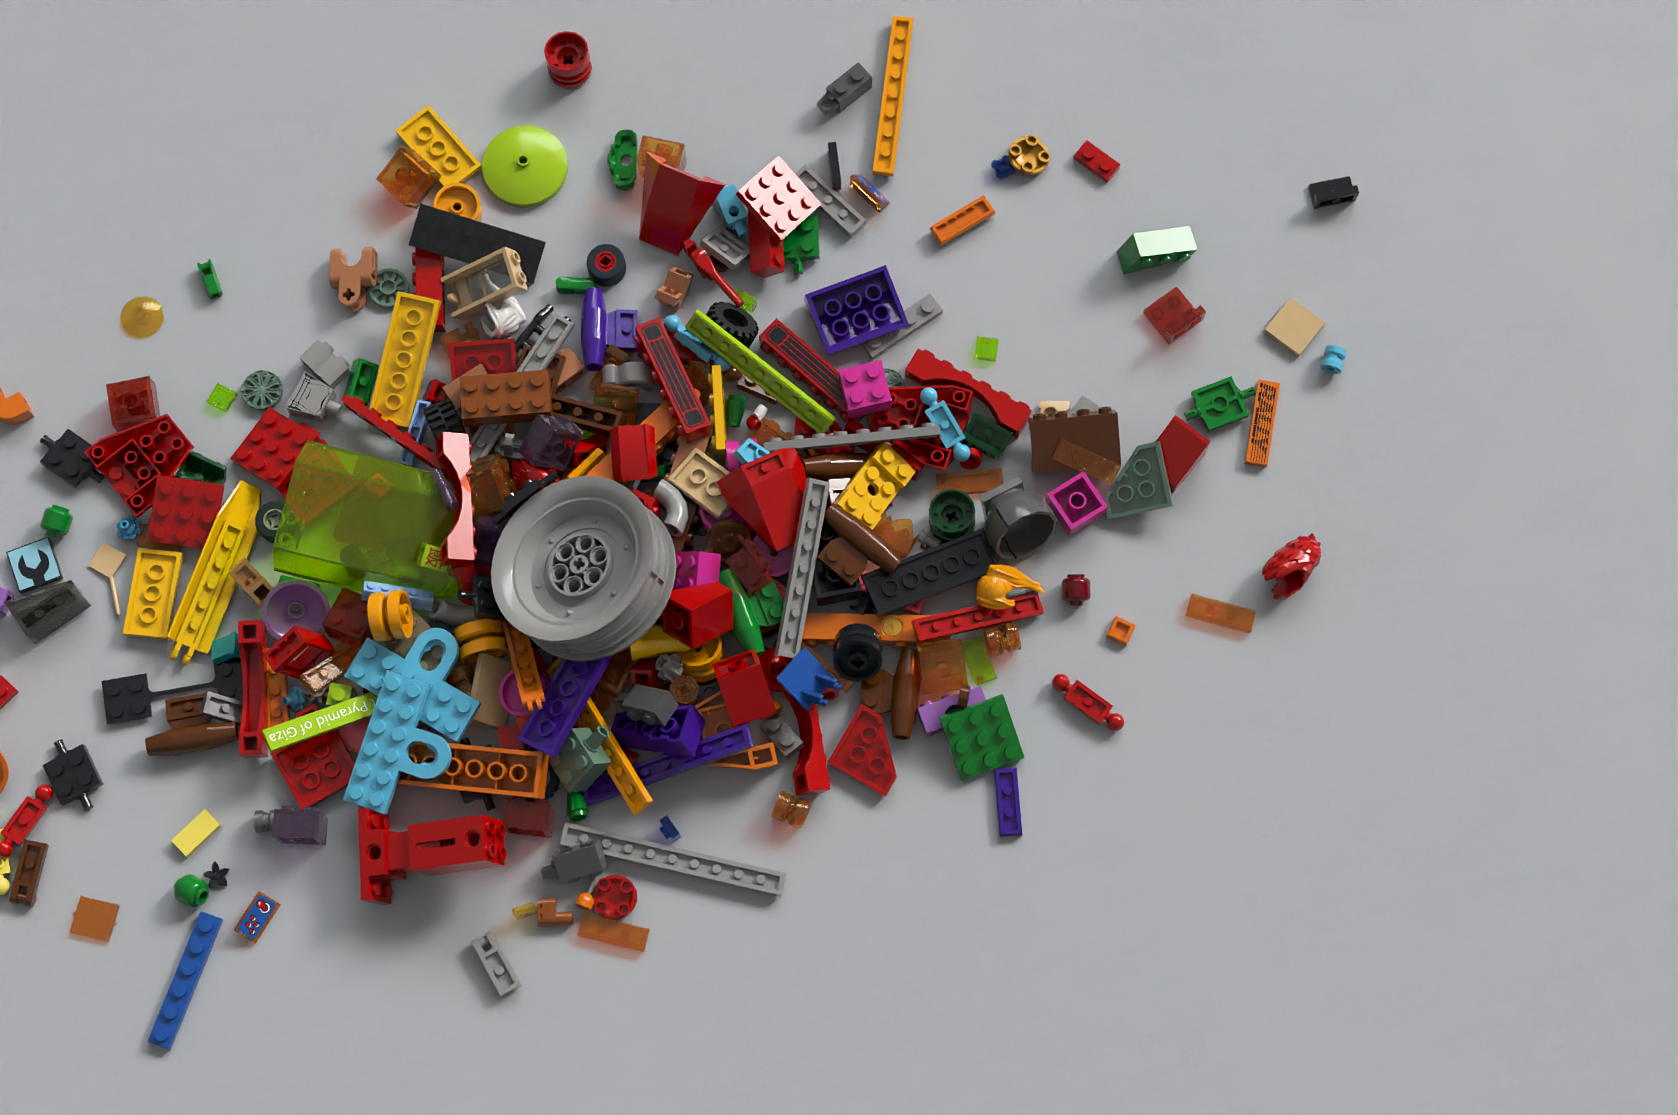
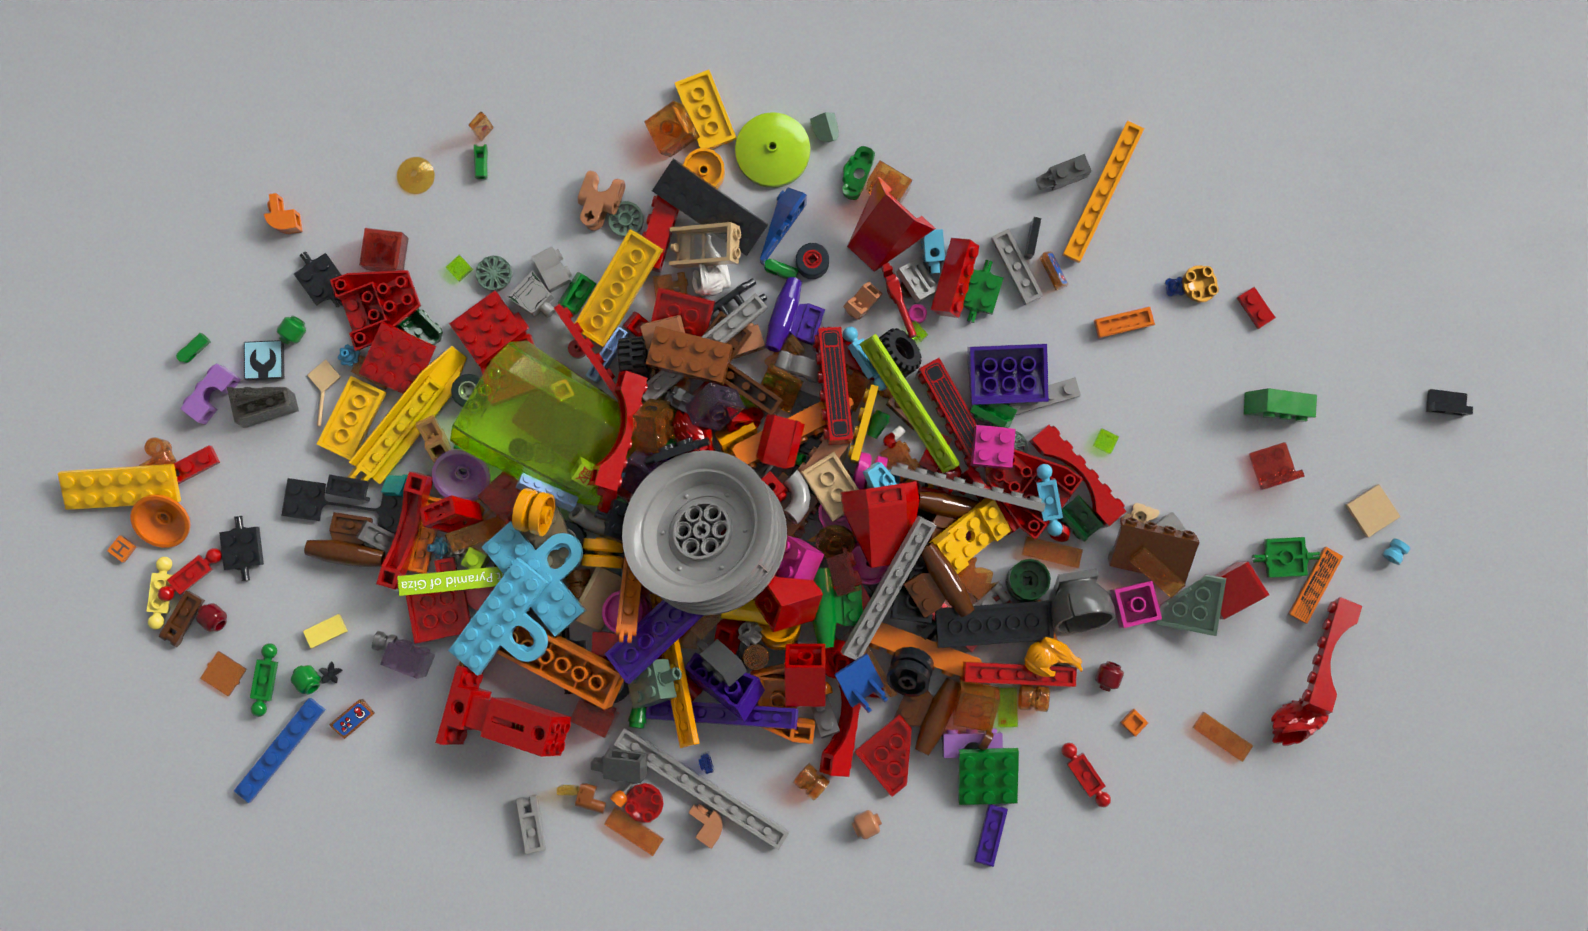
camera: 20 degrees right, 10 degrees up
(63, 859) = (211, 617): none -> dark red head
(143, 908) = (264, 680): none -> green plate
(173, 667) = (347, 487): none -> black panel
(199, 240) = (481, 126): none -> clear orange tile
(379, 441) = (576, 353): none -> red tile
(444, 489) = (612, 419): pin -> none
(562, 220) = (787, 210): none -> blue wedge
(568, 59) = (836, 60): red wheel -> none
(573, 123) = (825, 126): none -> sand green brick
(698, 894) = (711, 826): none -> nougat brick
(739, 281) = (918, 313): none -> dark pink tile
(778, 199) = (975, 254): plate -> none
(855, 355) = (998, 414): none -> green bracket
(868, 836) = (866, 824): none -> nougat head
(892, 626) = (946, 658): clear yellow tile -> none
(1301, 522) = (1321, 693): none -> red arch

